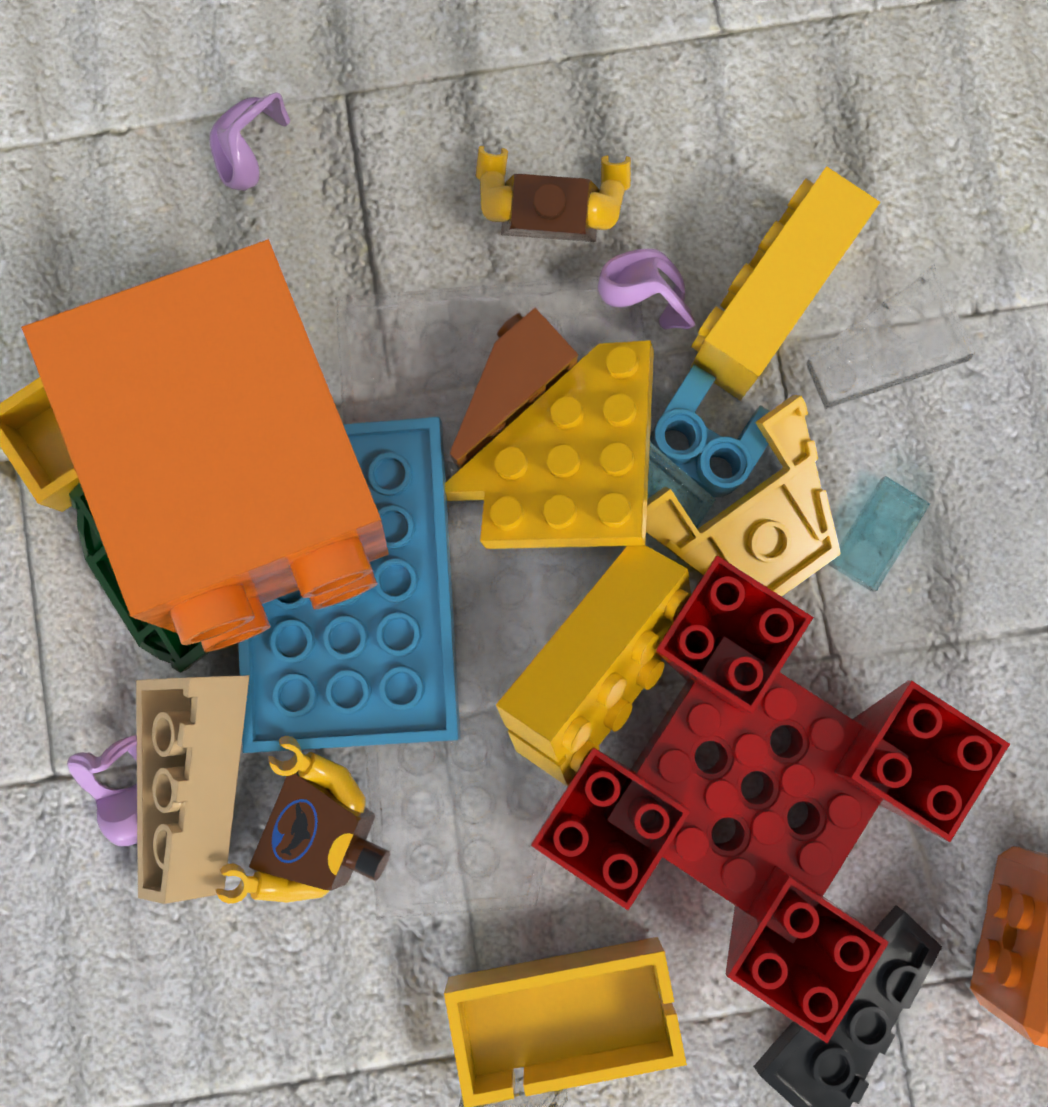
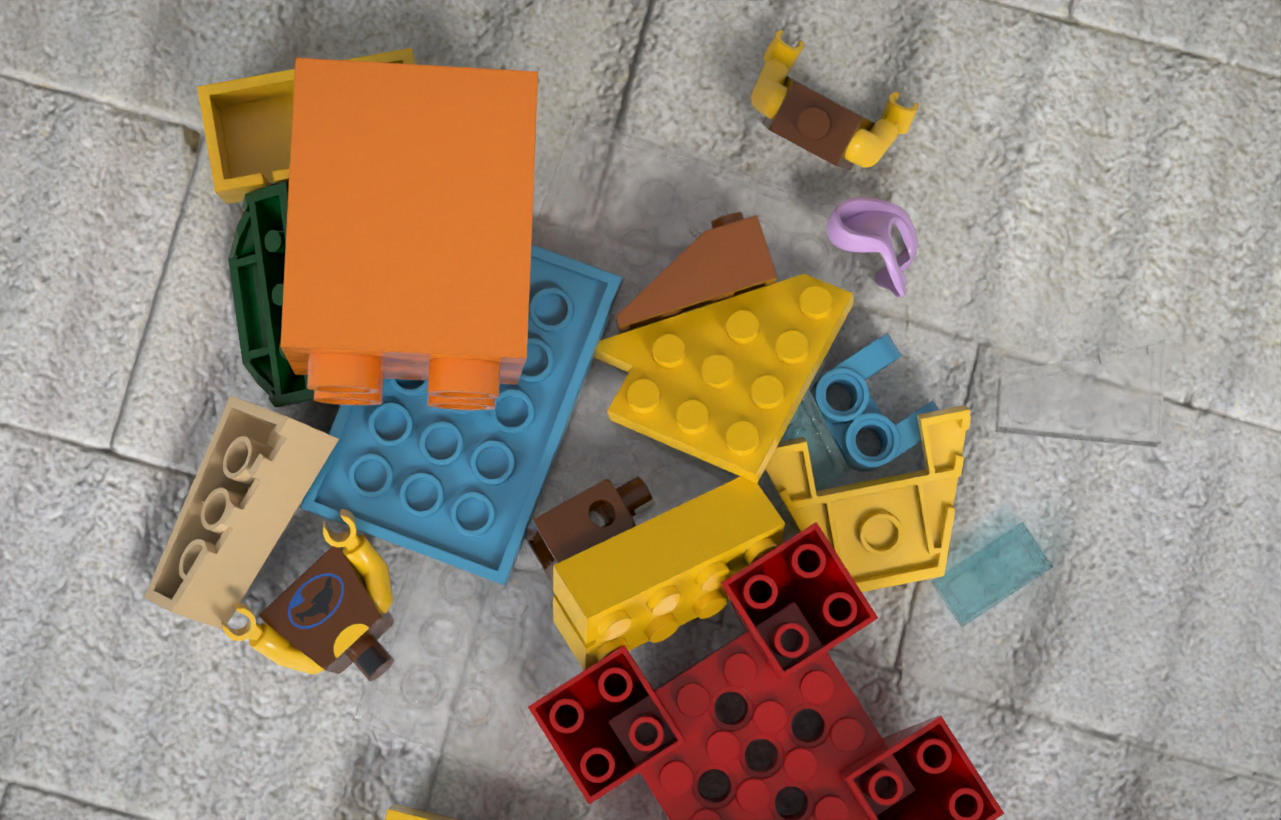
camera: 20 degrees right, 0 degrees up
(114, 806) = (156, 507): lavender piece -> none
(496, 665) = (569, 529): none -> reddish brown torso
(781, 280) = (1009, 292): yellow piece -> none

